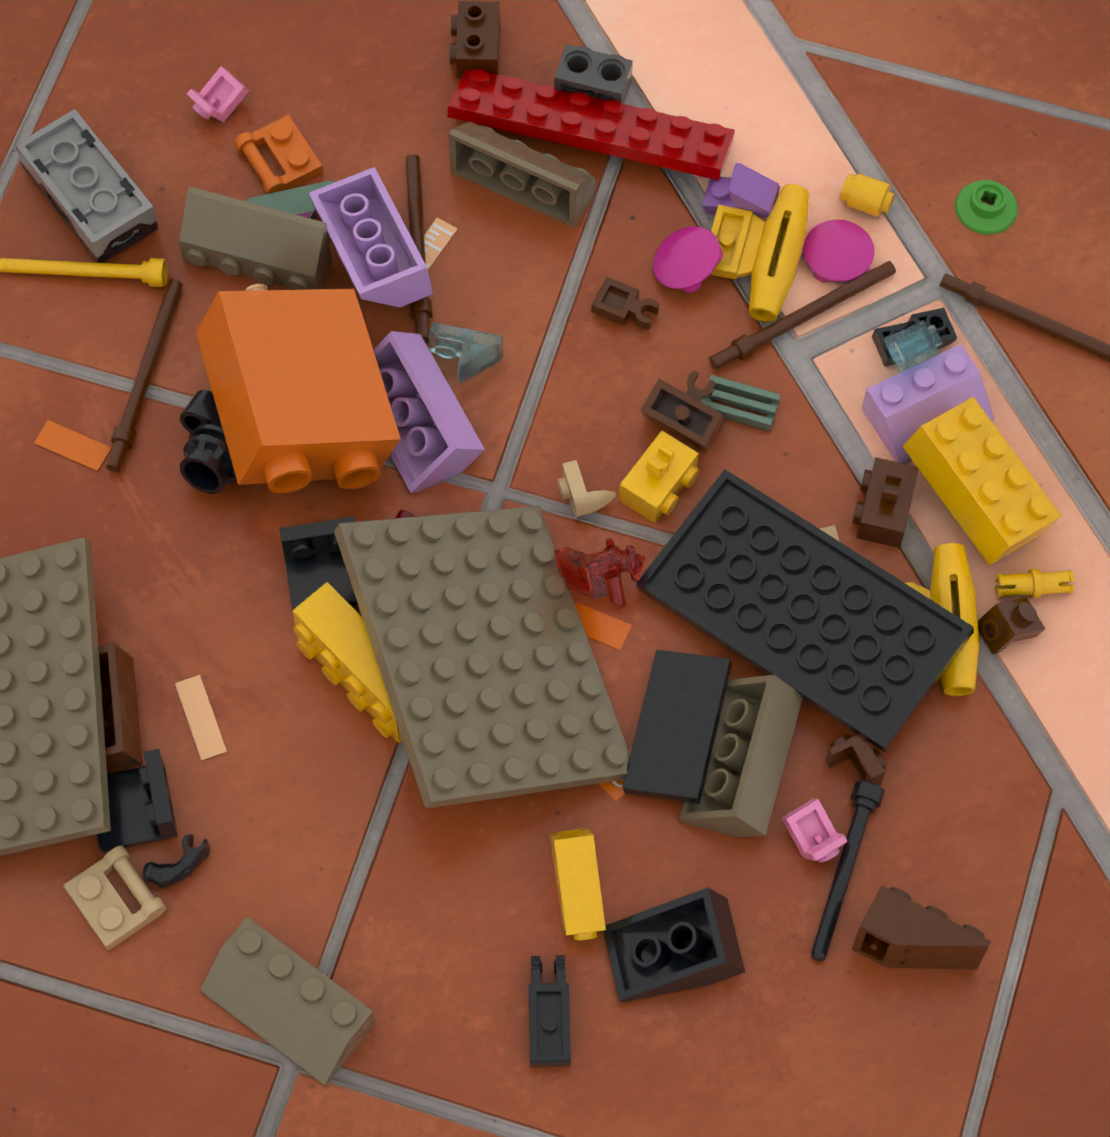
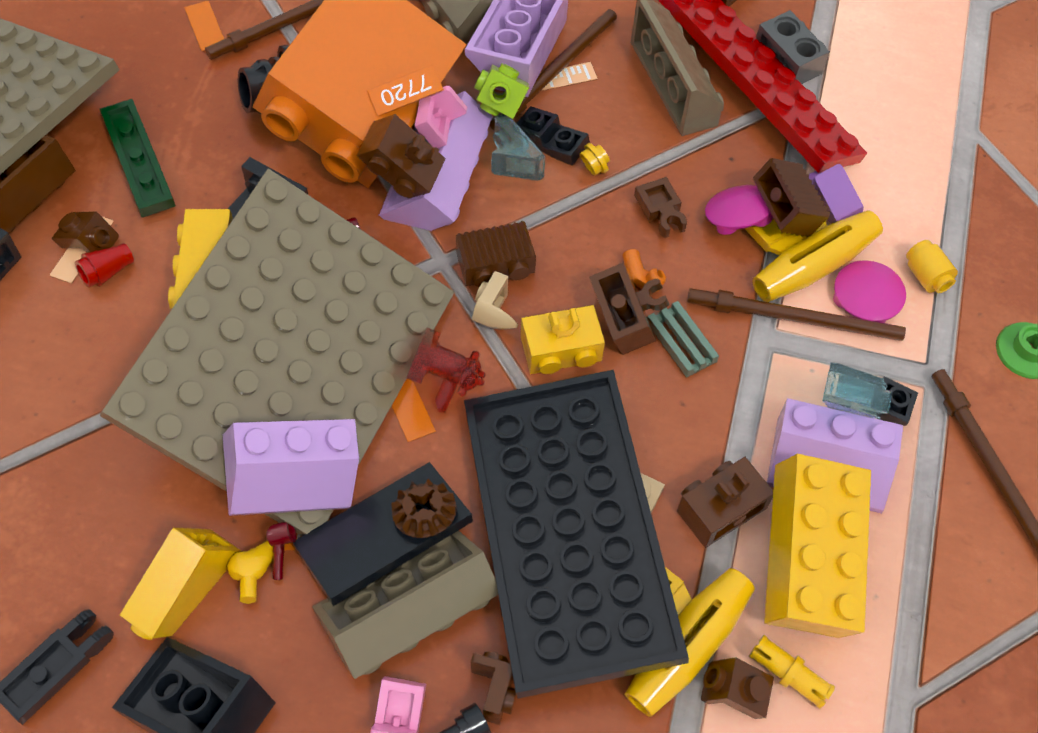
camera: 40 degrees right, 5 degrees down
(164, 606) = (137, 158): none -> dark green plate
(196, 702) = (85, 231): none -> reddish brown bracket
(242, 716) = (101, 265): none -> red cone
(364, 371) = (405, 90): none -> orange sticker
(394, 370) = (436, 113): none -> bright pink bracket
(415, 429) = (401, 157): none -> reddish brown brick
(420, 307) = (505, 102): none -> lime brick
(478, 312) = (551, 137): none -> black slope
(534, 305) = (595, 159): none -> yellow plate
(541, 450) = (495, 249): none -> reddish brown brick
(582, 731) = (290, 466): none -> lavender slope
(610, 829) = (248, 568): none -> yellow animal
(611, 789) = (277, 536): none -> dark red hand
(673, 375) = (635, 268): none -> orange arm
(708, 691) = (425, 522): none -> reddish brown gear
(725, 221) = (791, 197): none -> reddish brown brick

